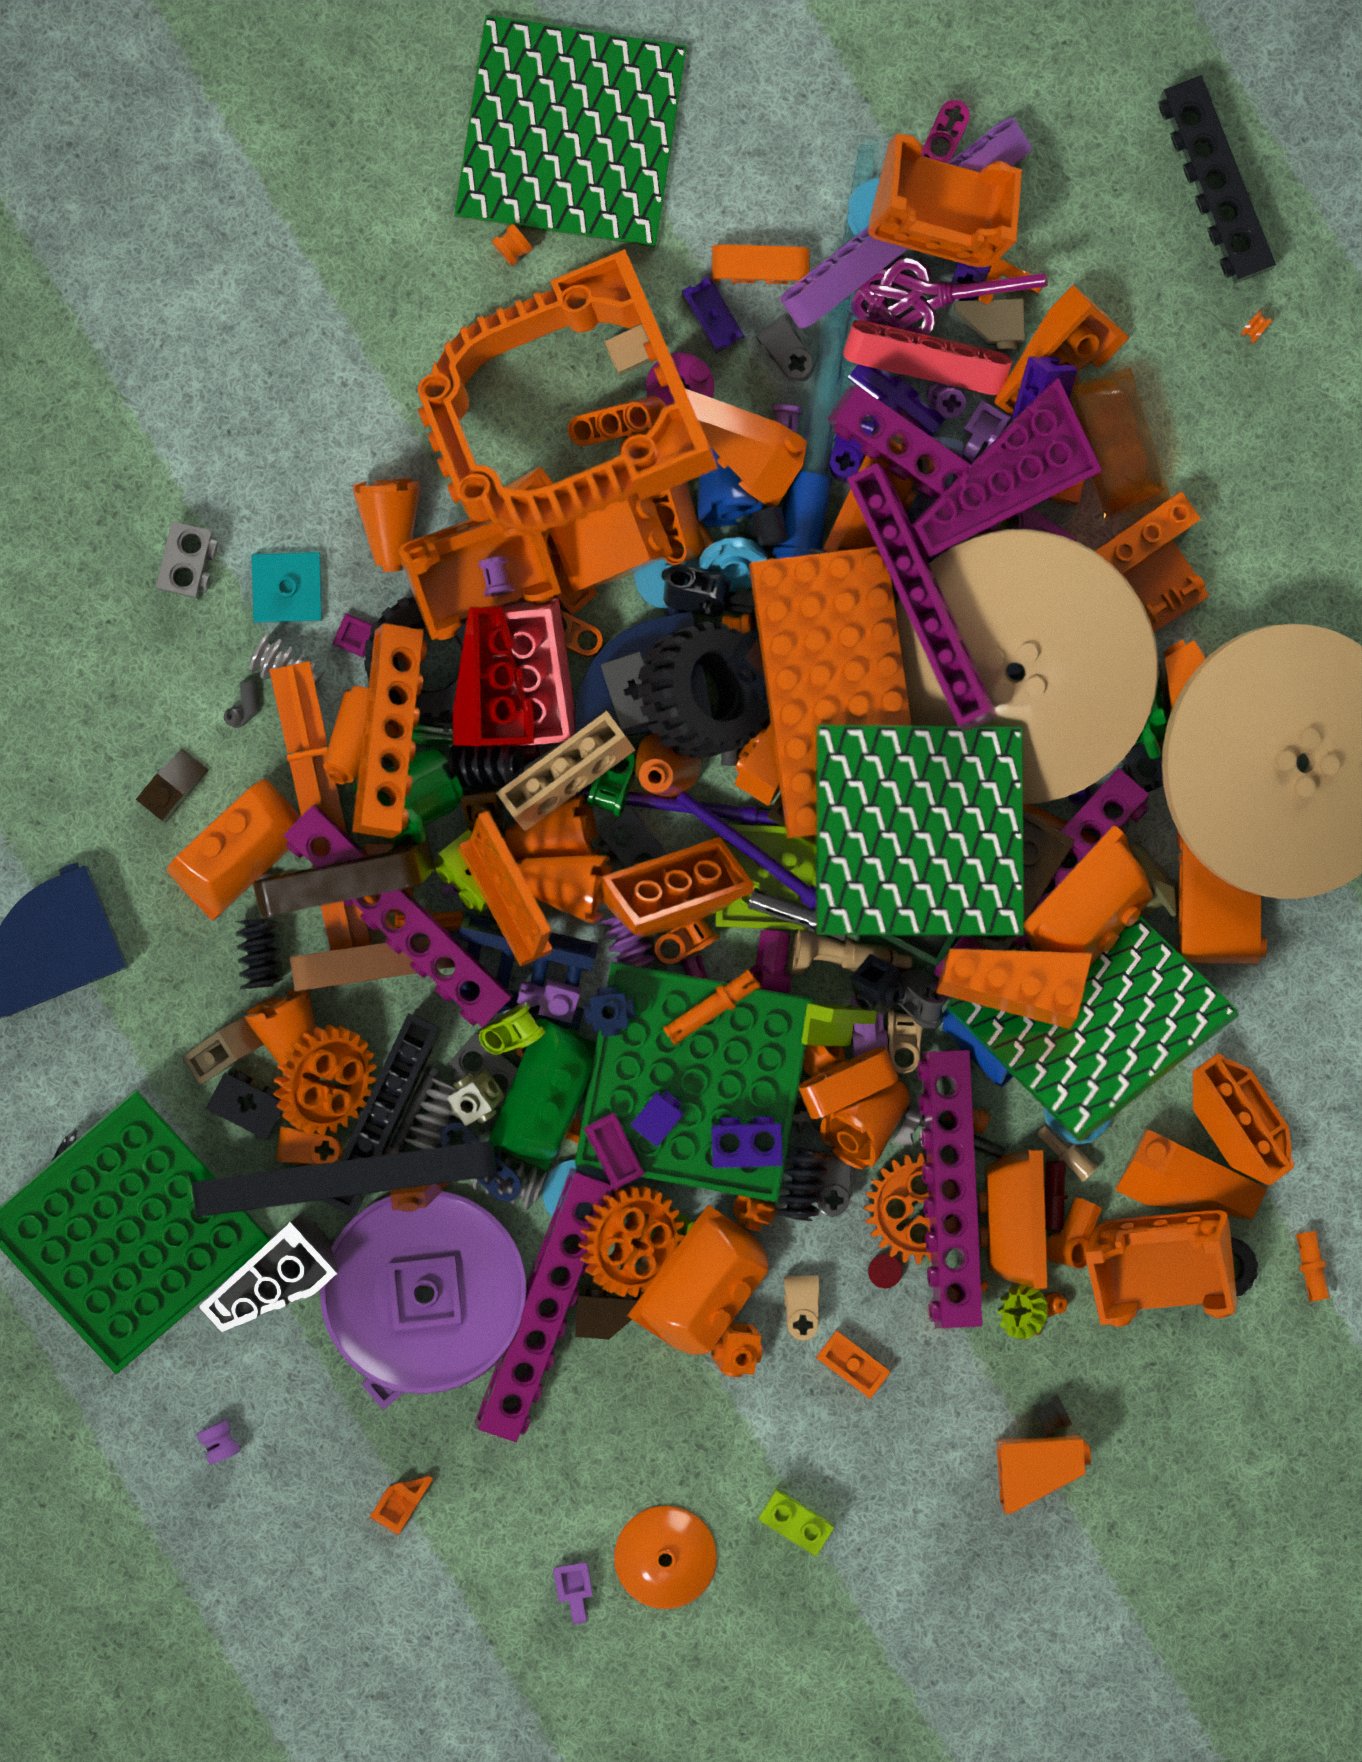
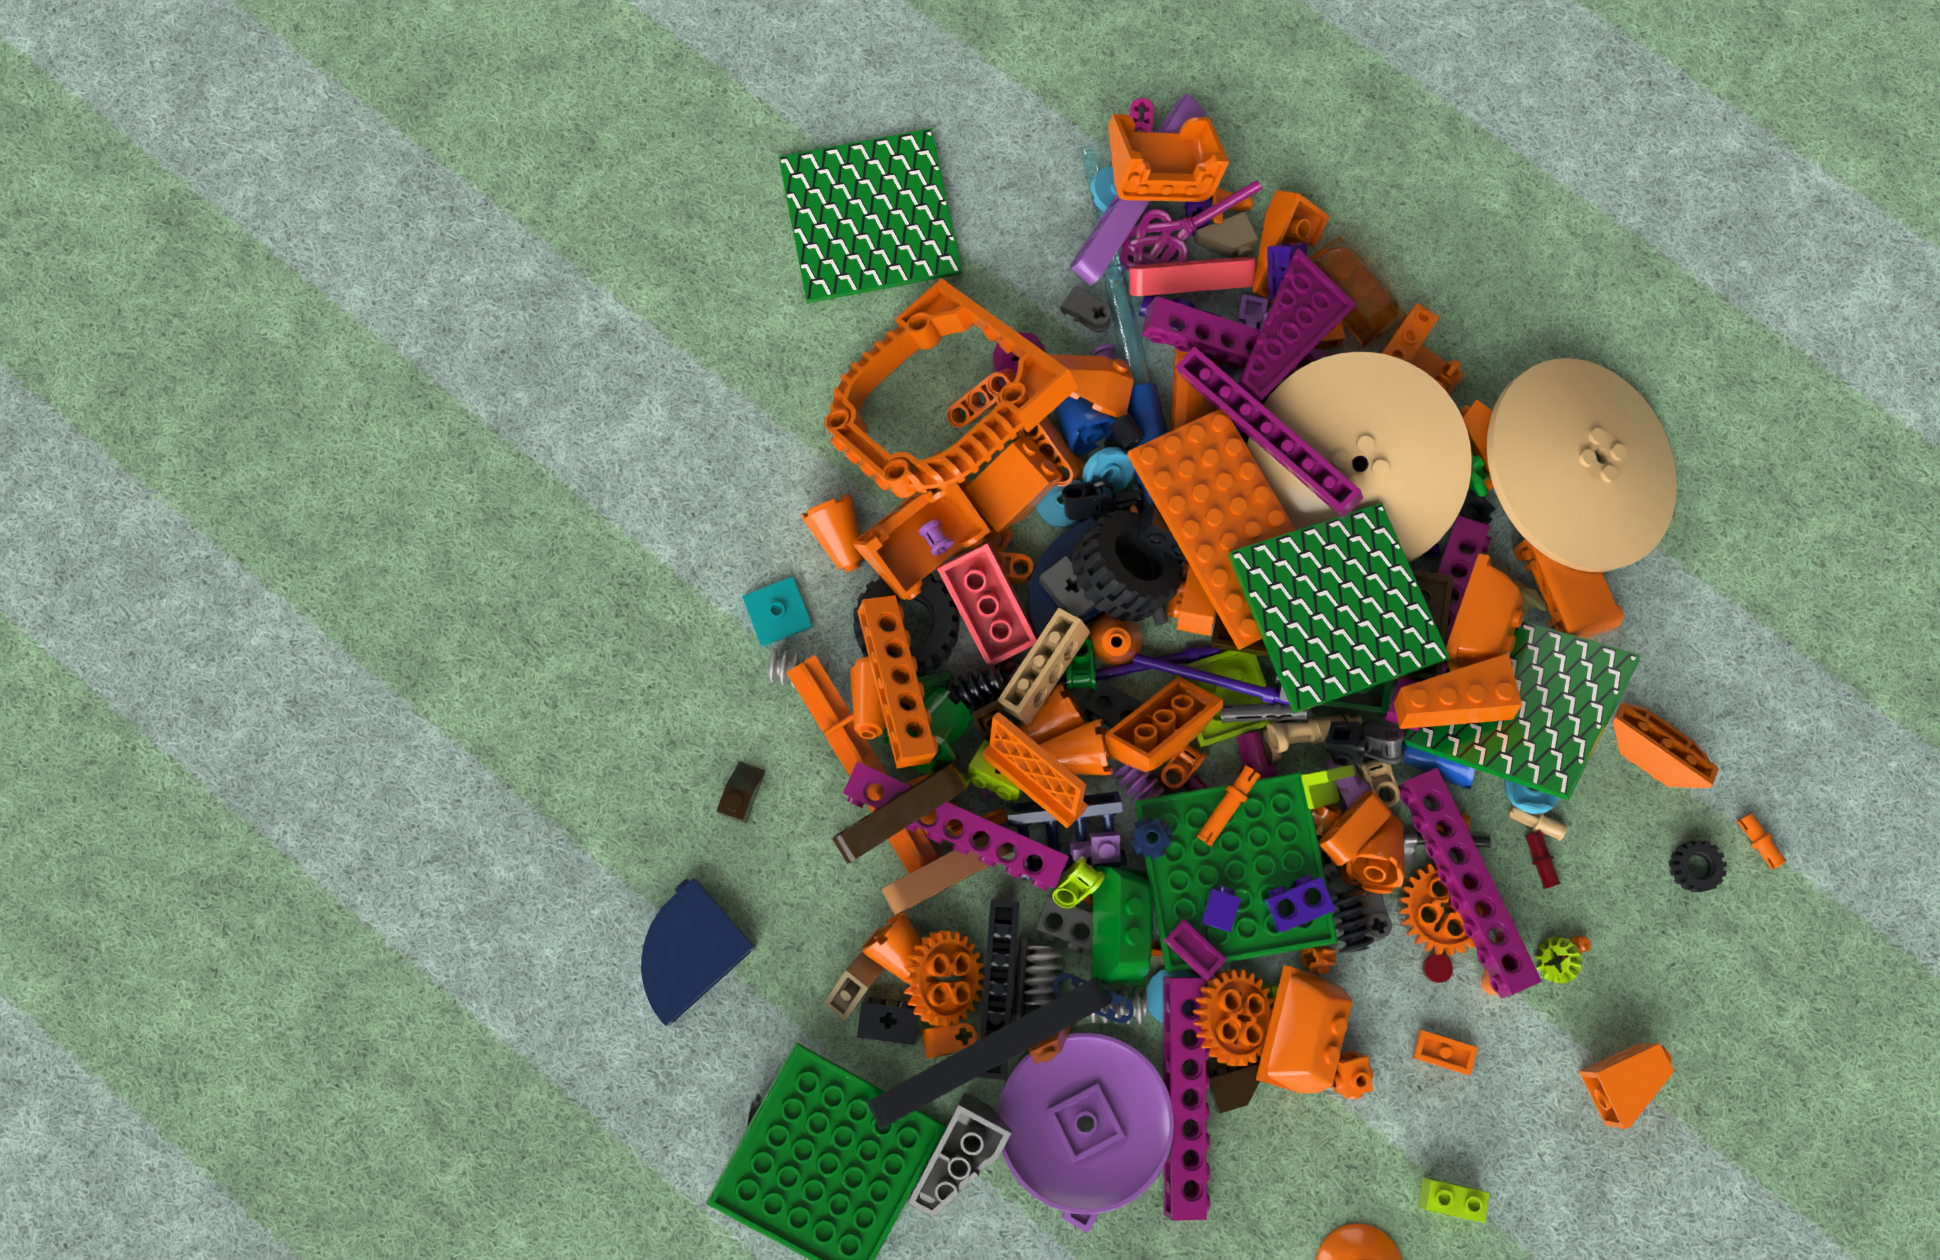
camera: 20 degrees left, 10 degrees down
(177, 559) = (687, 619): light grey brick -> none
(235, 849) = (807, 823): orange windscreen -> none
(246, 708) = (778, 712): dark grey arm -> none
(259, 953) = (855, 898): black piece -> none
(353, 635) = (841, 629): magenta tile -> none
(475, 1097) = (1069, 947): olive brick -> none
(489, 689) = (962, 627): red wedge -> none
(512, 245) = (856, 306): orange wheel -> none
(628, 350) = (971, 348): tan brick -> none
(712, 315) = (1021, 305): dark purple hinge -> none
(759, 262) = (1042, 256): orange beam -> none
(802, 1299) = (1384, 1018): tan piece -> none
(848, 449) = (1160, 358): dark purple piece -> none
(945, 400) = (1216, 300): medium lavender bush -> none
(1015, 1218) = (1528, 886): orange windscreen -> none
(1052, 1415) = (1616, 1034): pearl dark grey wheel -> none
(1070, 1244) = (1574, 891): orange piece -> none
(1161, 1265) = (1655, 880): orange windscreen -> none
(1179, 1178) = (1630, 810): orange wedge -> none
(1194, 97) = (1344, 74): black brick -> none
(1256, 326) = (1417, 177): orange bush -> none

